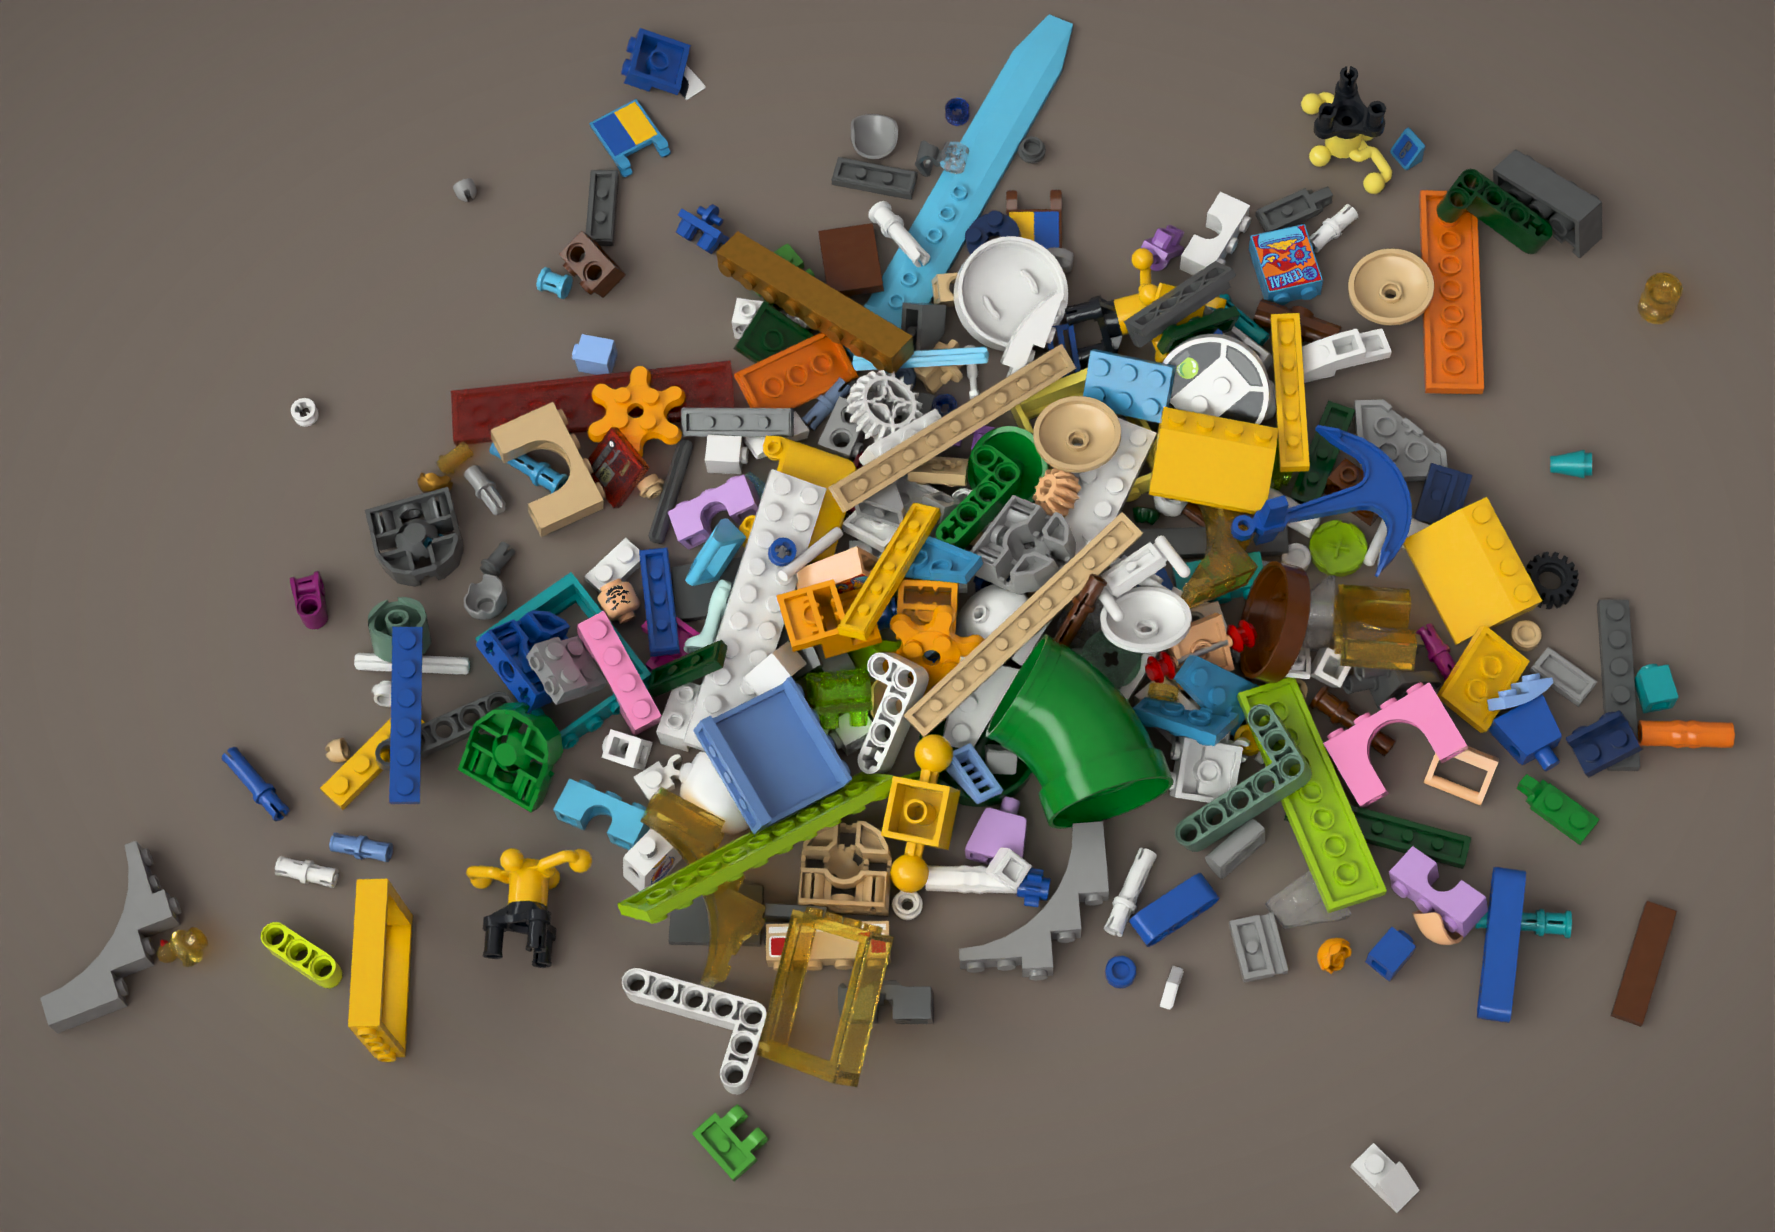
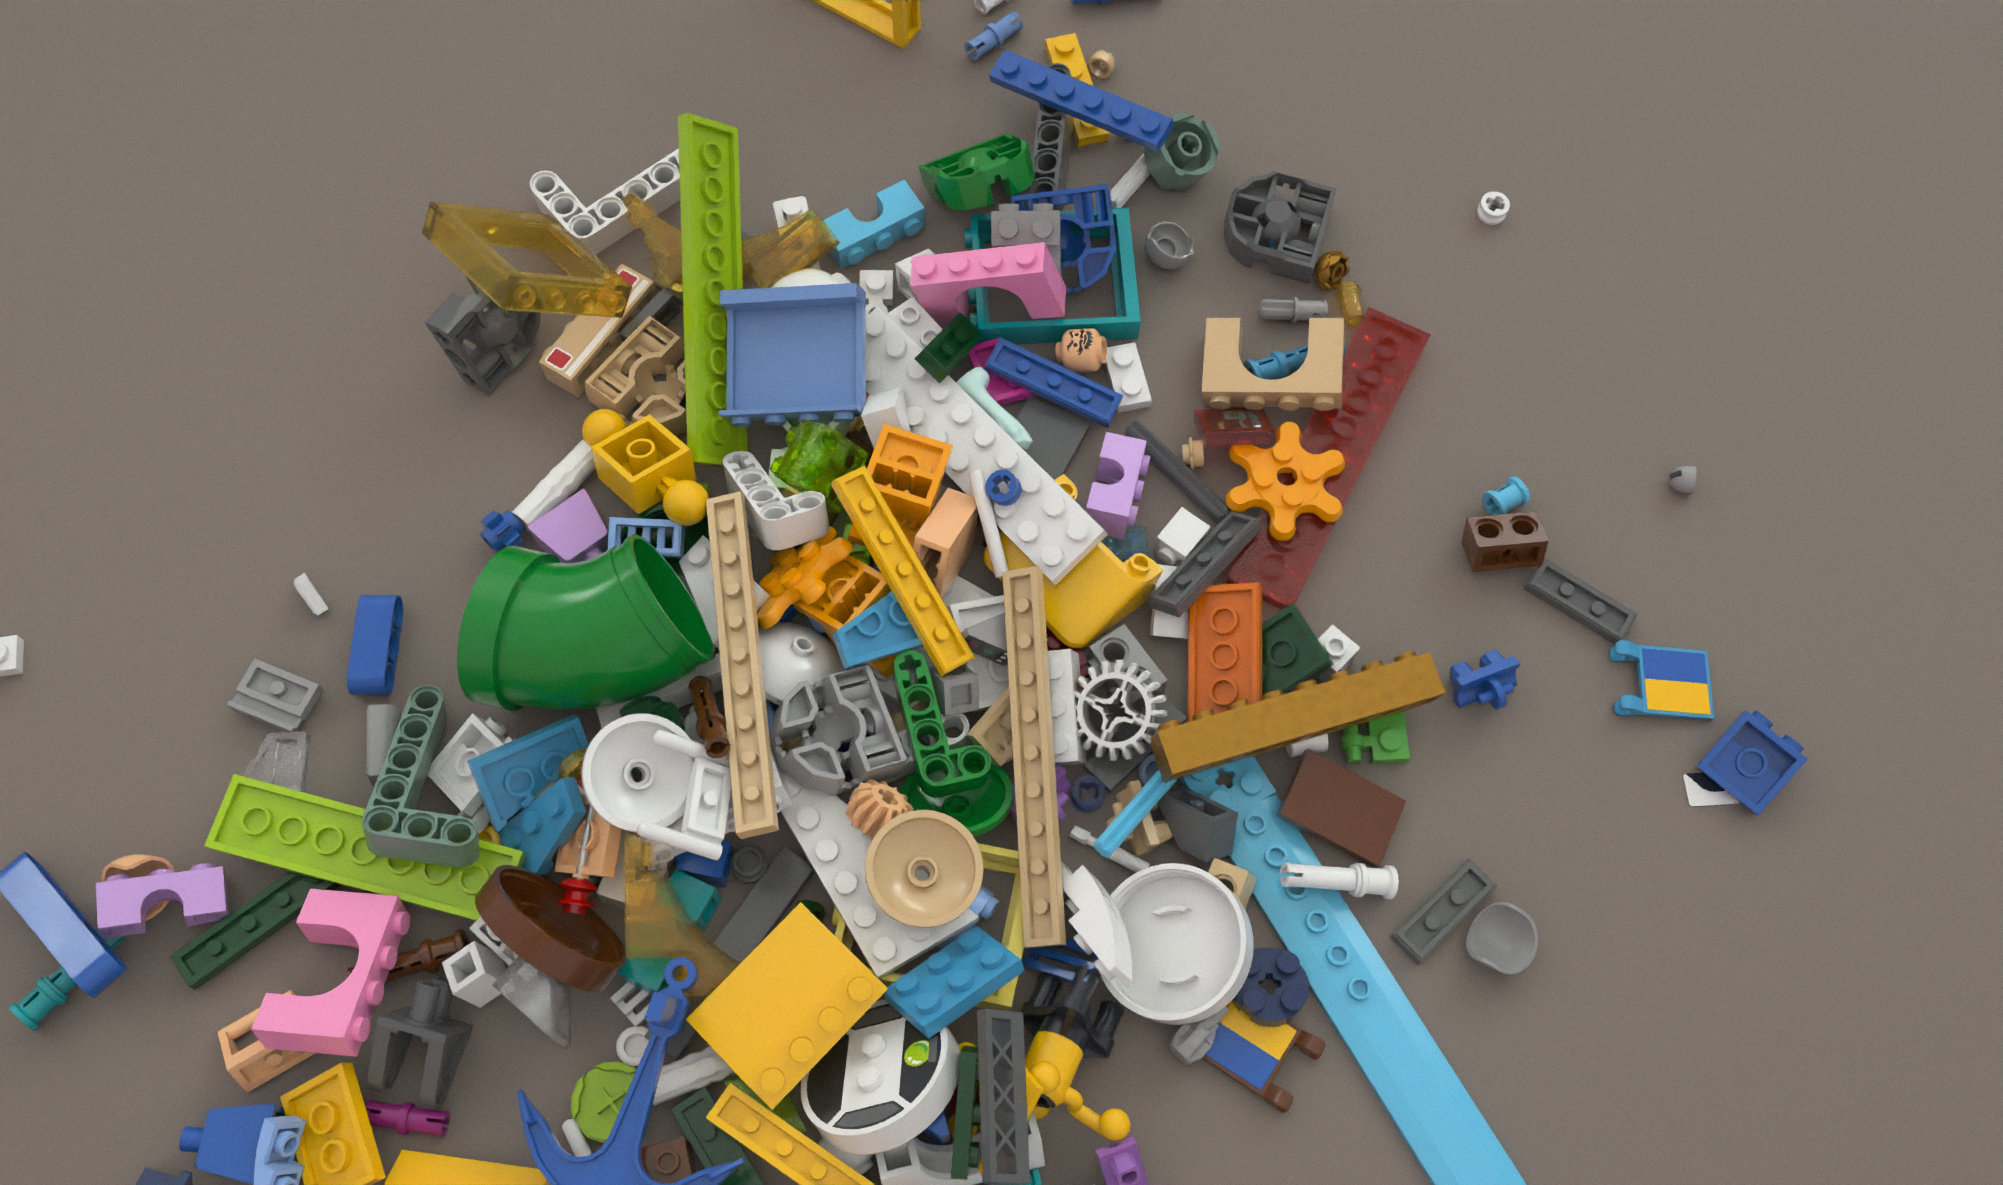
camera: 115 degrees right, 0 degrees up
(310, 595) = (1272, 110): magenta piece -> none
(497, 560) = (1207, 280): dark grey pin -> none
(527, 899) = (820, 106): wheel -> none
(595, 355) = (1386, 486): light blue brick -> none
(715, 553) = (1060, 445): medium azure tile -> none
(725, 1147) = (498, 153): bright green plate -> none
(826, 404) = (1174, 671): sand blue pin -> none
(902, 897) = (576, 416): white plate -> none
(950, 158) = (1413, 1000): leg -> none
(953, 104) = (1481, 1054): clear blue bush -> none
(1008, 868) = (530, 509): white slope -> none
(1031, 150) = (1370, 1119): dark grey plate -> none
(1060, 919) = (453, 498): light grey arch -> none
(1120, 972) = (366, 562): blue tile -> none
(1125, 902) = (422, 608): white pin -> none
(1333, 953) = (206, 760): light orange plate -> none
(1358, 630) = (444, 992): clear yellow arch -> none
(1391, 953) = (156, 815): blue brick -> none
(1558, 809) = (142, 1112): green hinge -> none

